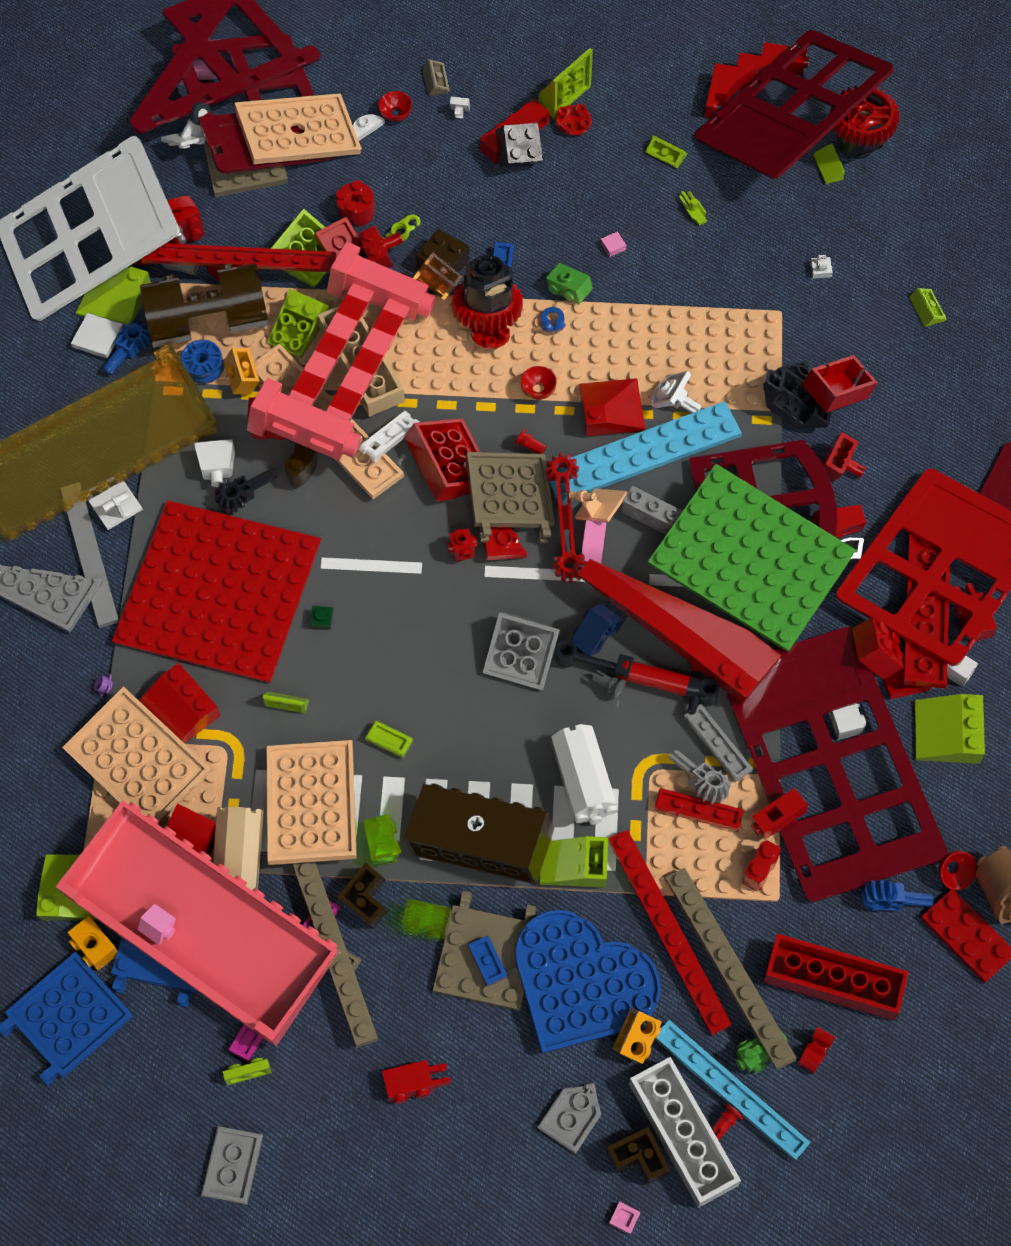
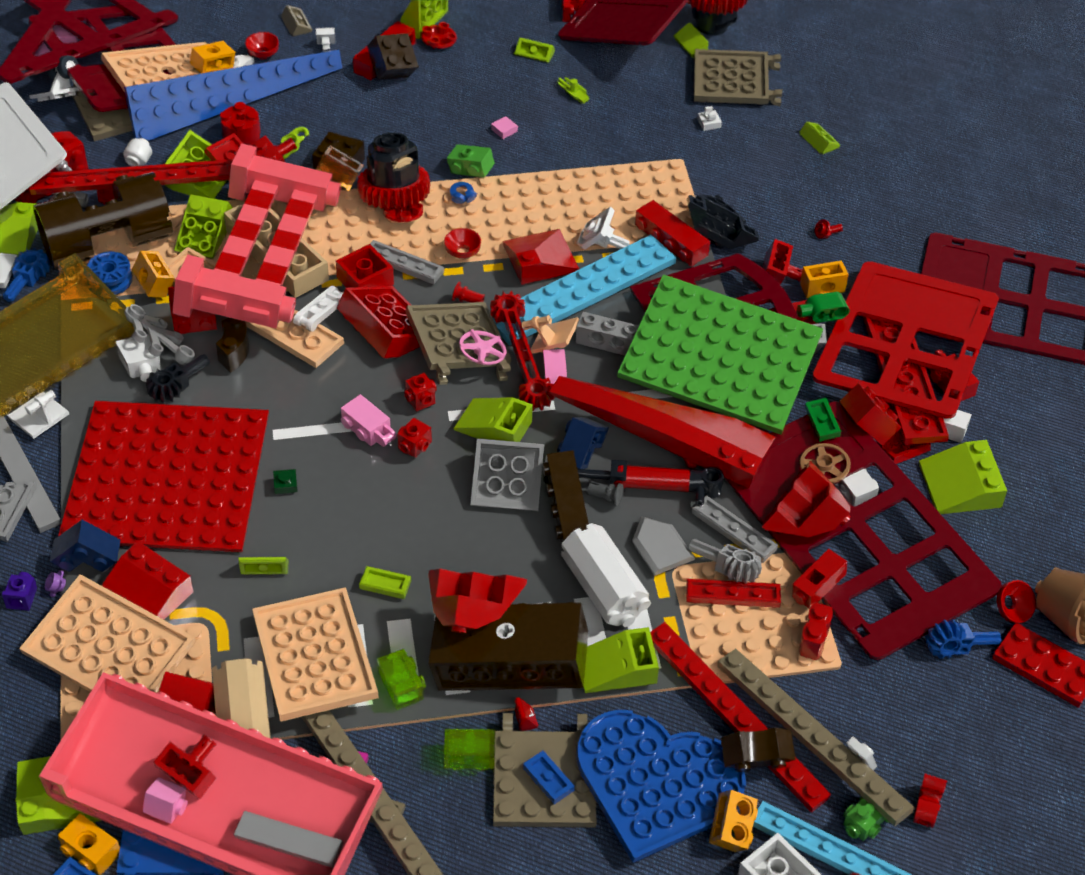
camera: 15 degrees left, 15 degrees down
(75, 692) = (20, 591): none -> dark purple brick
(132, 657) = (87, 545): none -> dark blue brick
(178, 900) = (188, 767): none -> red brick
(218, 424) = (156, 332): none -> light grey plant
(252, 221) = (137, 152): none -> white head
(252, 980) = (288, 839): none -> light grey tile
(307, 168) = (182, 101): none -> blue wing
(342, 119) = (212, 57): none -> light orange brick
(359, 895) = (390, 737): dark brown brick -> none
(407, 569) = (367, 422): none -> bright pink brick
(438, 400) = (364, 269): none -> red brick
(445, 595) = (414, 437): none -> red brick
(450, 788) = (471, 597): none -> red brick
(479, 392) = (409, 263): none -> light grey tile
(484, 894) = (525, 715): none -> red slope
(503, 545) = (463, 386): red wing -> none
(524, 589) = (496, 419): none -> lime slope
(528, 509) = (482, 348): none -> bright pink wheel
(568, 686) = (566, 493): none -> dark brown brick
(645, 747) = (660, 546): none -> light grey tile
(676, 973) = (758, 749): none -> dark brown brick
(744, 404) = (672, 233): none -> red brick
(767, 995) = (863, 752): none -> white plate
(791, 739) = (809, 507): none -> red brick
(820, 693) = (826, 462): none -> medium nougat wheel
(830, 646) = (822, 419): none -> green plate
(835, 385) = (756, 203): red piece -> none
(836, 977) = (928, 724): red brick -> none
(860, 218) = (735, 77): none -> dark tan plate
(868, 520) = (824, 307): none -> green piece
(880, 482) = (824, 278): none -> light orange brick
(899, 421) = (824, 230): none -> red plate

